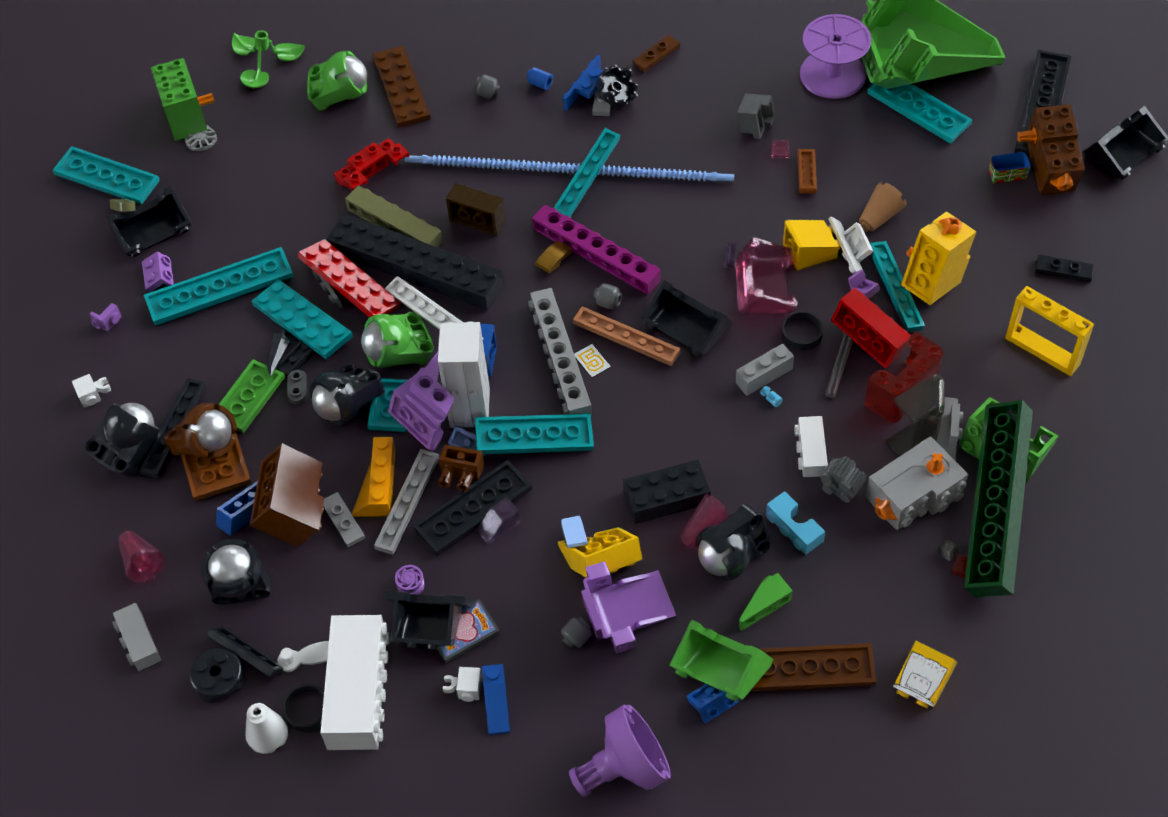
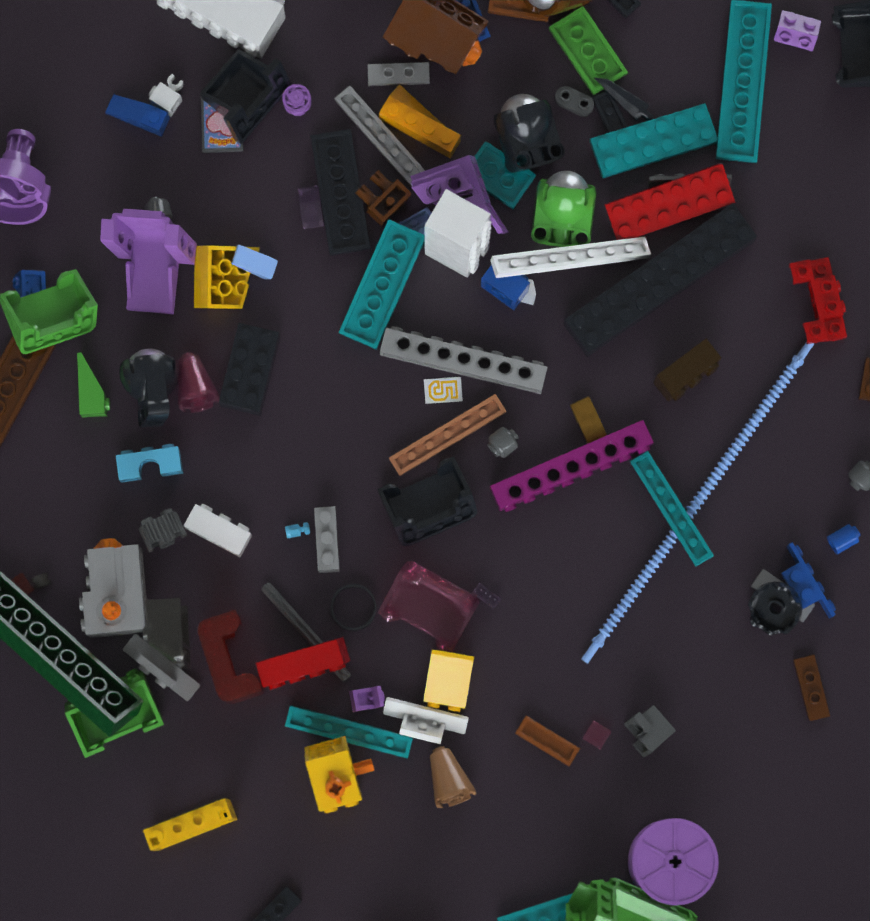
camera: 115 degrees right, 25 degrees up
(390, 216) = (729, 287): olive brick -> none

